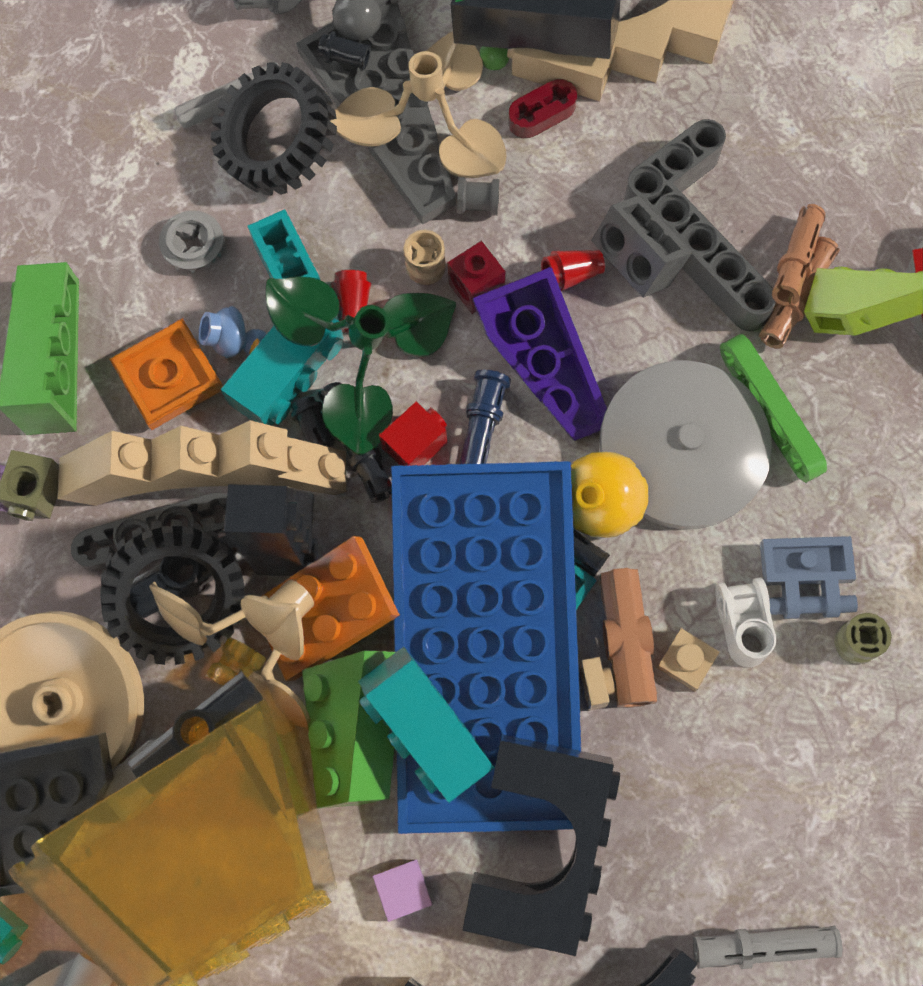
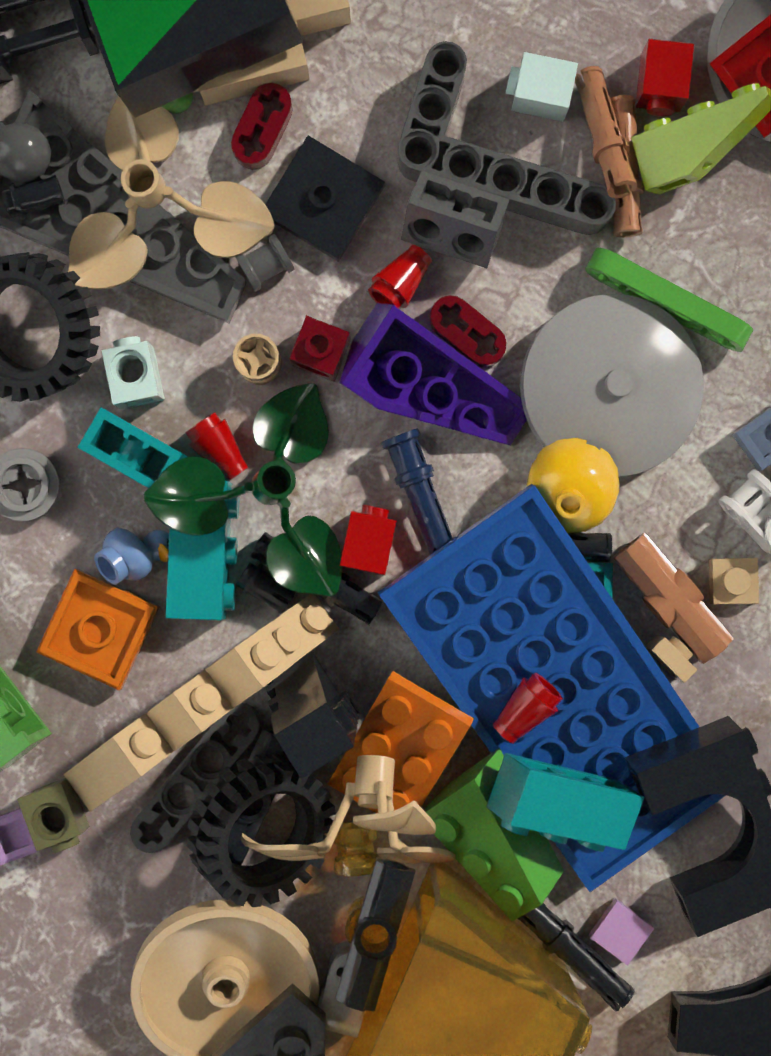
camera: 40 degrees left, 15 degrees up
(329, 227) = (144, 390): none -> light aqua brick
(351, 880) = (588, 965): none -> black pin
(448, 631) = (527, 708): none -> red cone
(553, 182) = (323, 198): none -> black plate
(606, 334) = (475, 323): none -> dark red beam
(771, 198) = (542, 86): none -> light aqua brick
(872, 243) = (664, 76): none -> red brick

